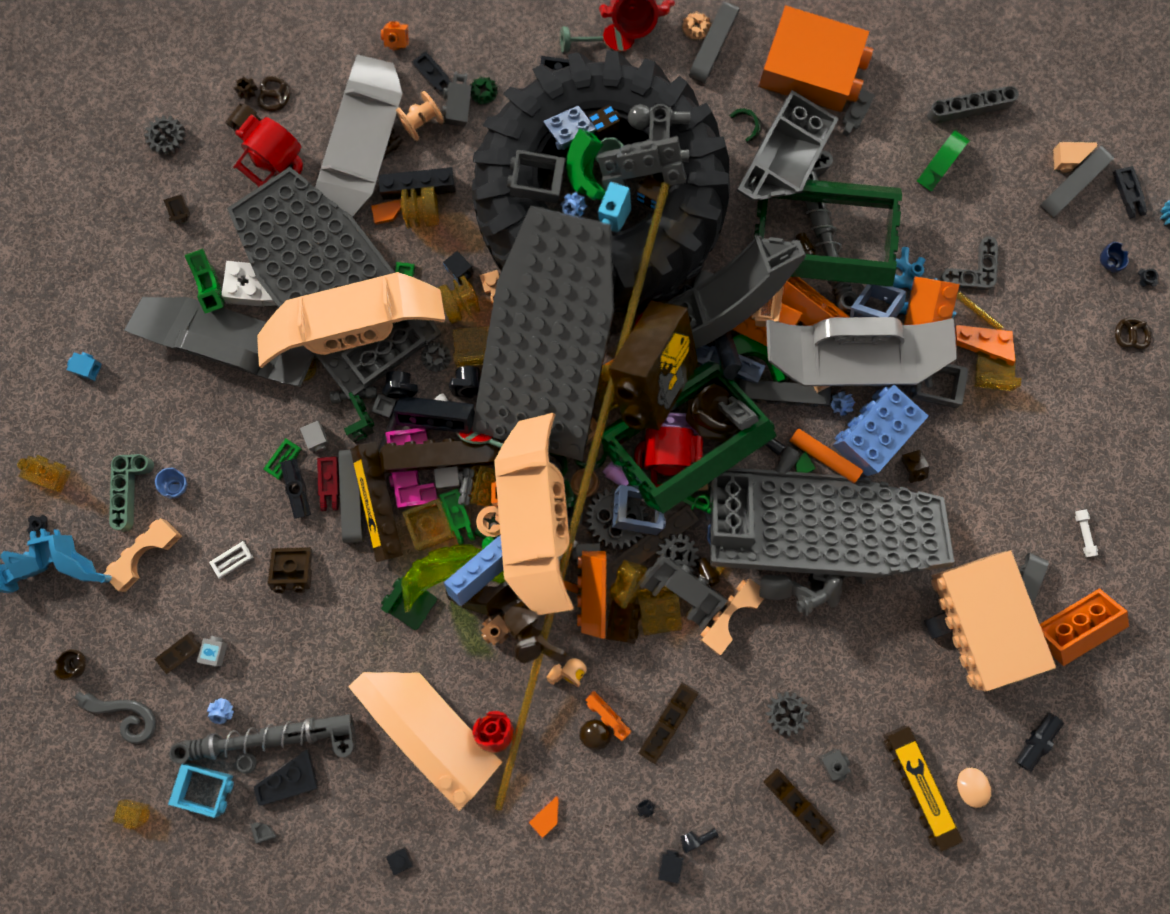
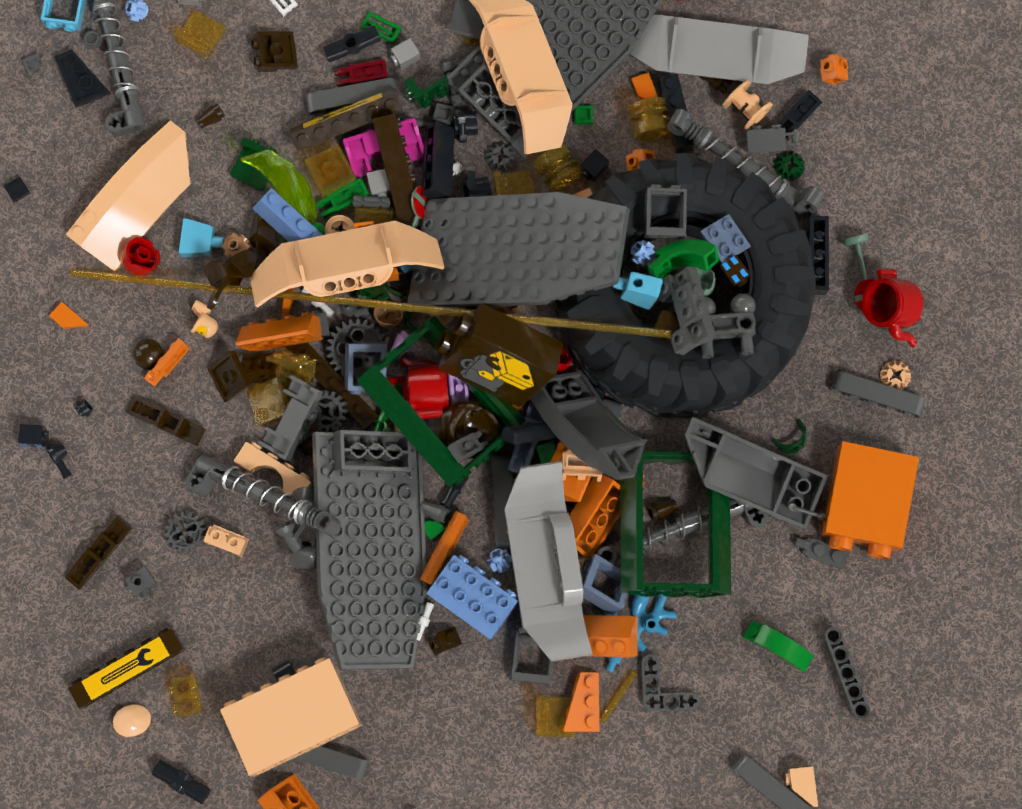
camera: 80 degrees right, 0 degrees up
(259, 645) = (200, 34): none -> clear yellow bracket
(350, 643) = (210, 116): none -> dark brown cone
(448, 156) = (802, 203): none -> dark grey piece
(462, 222) = (636, 156): none -> orange brick
(481, 669) = (198, 239): none -> medium azure torso
(631, 650) = (229, 376): none -> dark brown tile
(794, 581) = (303, 512): none -> dark grey piece
(799, 671) = (226, 540): none -> light nougat window
(819, 125) = (791, 506): none -> dark grey hinge
(894, 483) = (424, 619): none -> white bar
(954, 725) = (191, 695): none -> clear yellow brick

